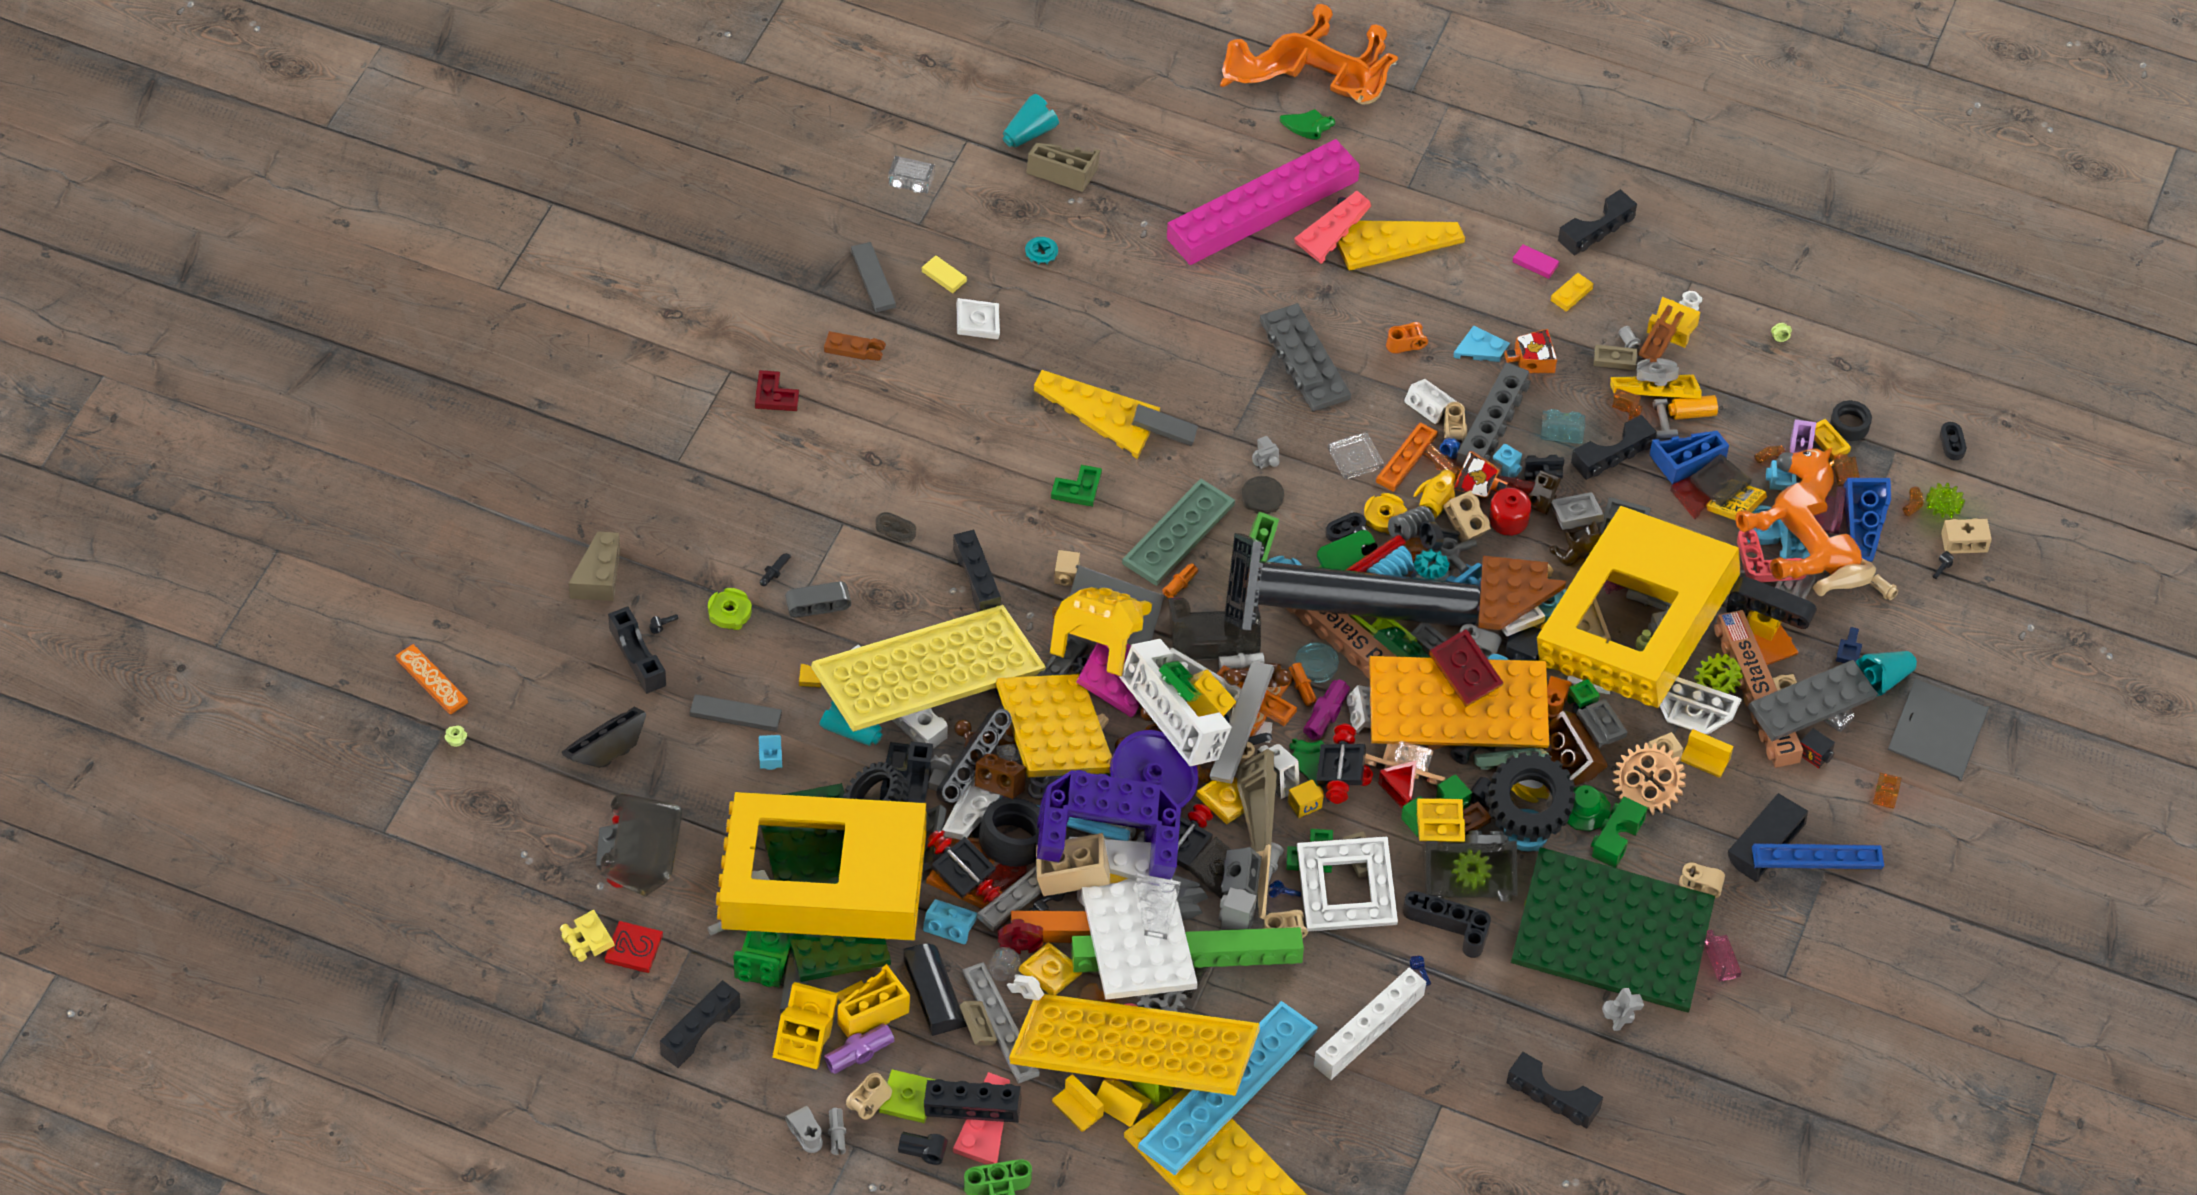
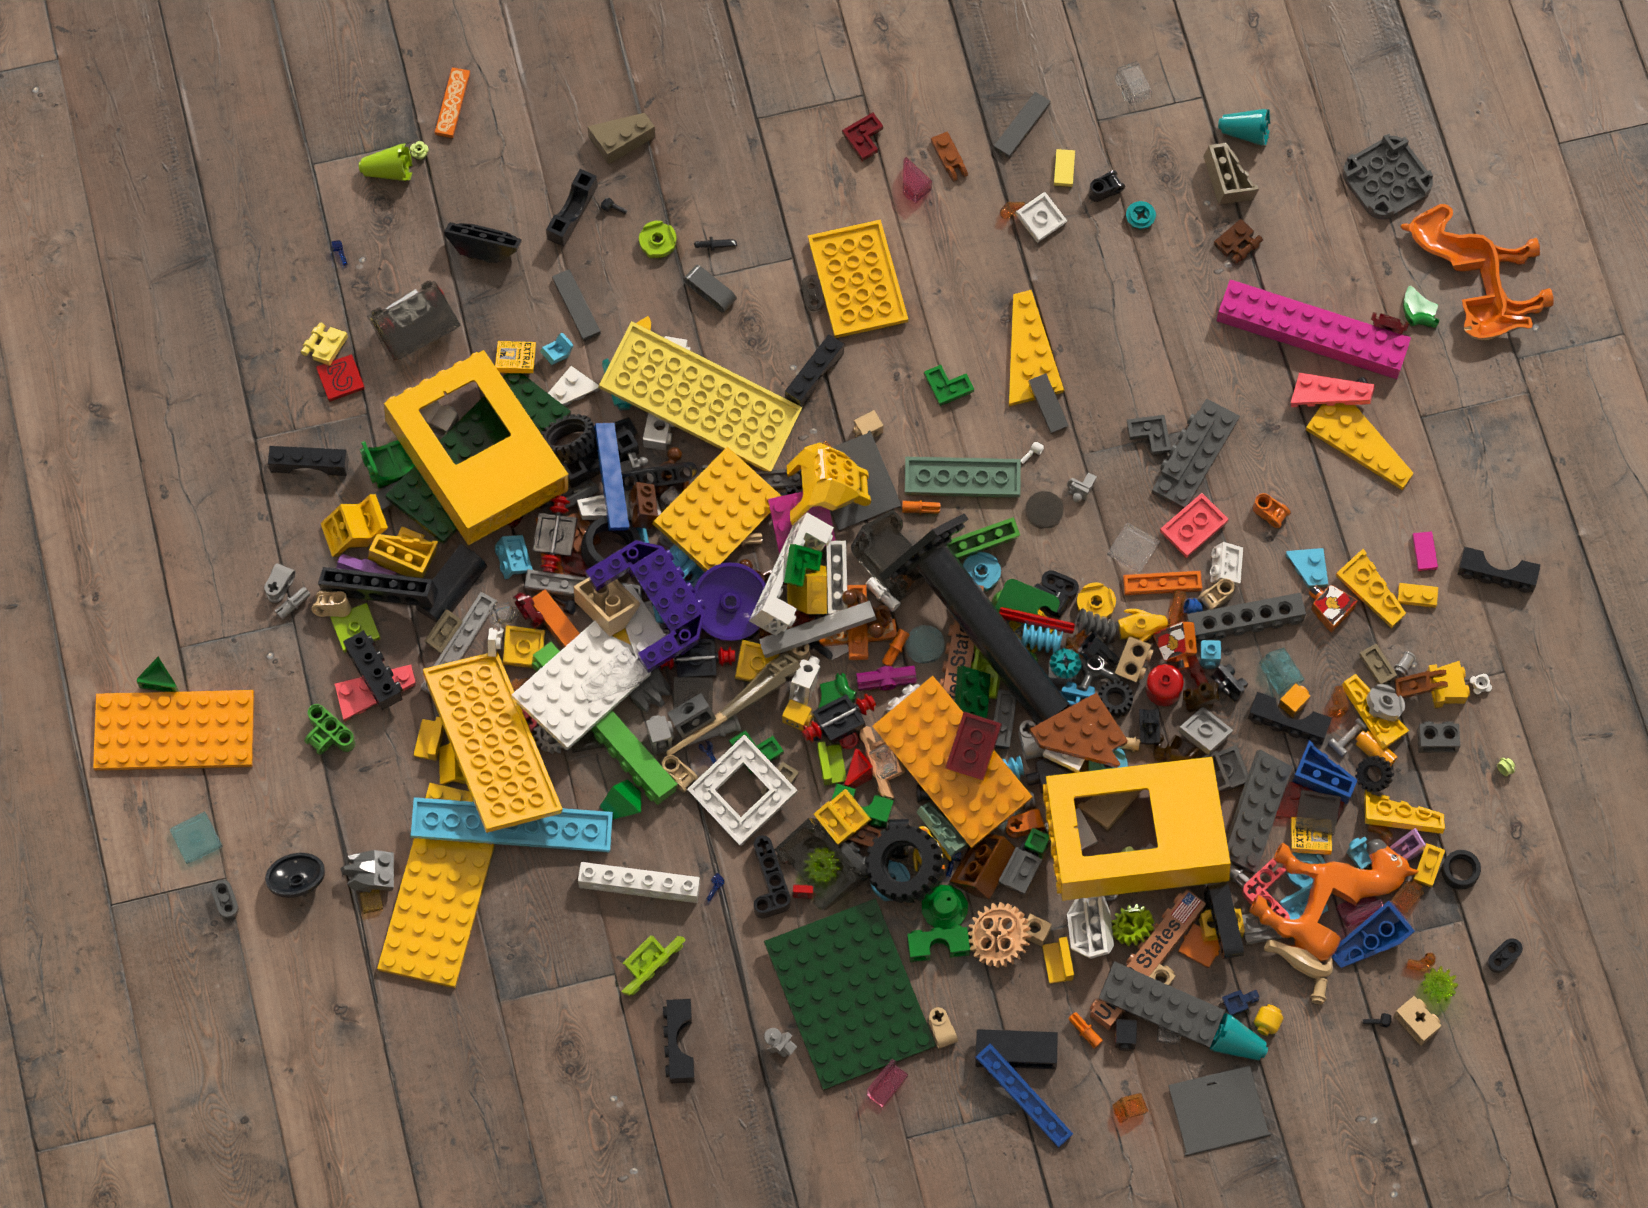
camera: 55 degrees right, 15 degrees up
(450, 765) = (388, 164): none -> lime cone
(494, 861) = (337, 246): none -> clear blue hand
(747, 782) = (515, 357): none -> yellow tile
(817, 766) = (572, 387): none -> white wing
(854, 384) = (915, 182): none -> clear pink slope
(893, 1038) = (379, 587): none -> black brick
(912, 485) = (857, 279): none -> yellow plate
(929, 1148) = (321, 666): black piece -> none
(946, 335) = (1009, 208): none -> clear orange arm
(950, 780) = (611, 476): none -> tile
(991, 257) = (1108, 184): none -> black piece
(1123, 201) = (1234, 237): none -> reddish brown plate
(1165, 66) = (1387, 177): none -> dark grey tile
(1198, 463) = (1035, 448): none -> white hand
(1256, 369) = (1152, 428): none -> dark grey plate
(1276, 987) = (622, 800): none -> green slope
(1307, 146) = (1389, 321): none -> dark red plate
(1373, 399) = (1194, 525): none -> coral plate
(1373, 805) = (831, 763): none -> lime panel
(1454, 1065) = (647, 959): none -> lime bracket
(1485, 900) = (803, 891): none -> red tile
(1488, 547) = (1121, 689): none -> black tyre
(1529, 318) = (1366, 583): none -> yellow wing
(1539, 547) = (1149, 726): none -> black hips
(1600, 431) = (1294, 700): none -> light orange brick
(1667, 504) = (1257, 810): none -> dark grey plate
(1717, 358) = (1439, 742): none -> dark grey brick
(1717, 406) = (1366, 782): none -> black tyre
(1767, 429) = (1401, 815): none -> yellow wing
(1788, 776) = (1085, 1030): none -> orange axle
(1884, 637) = (1268, 1020): none -> yellow head

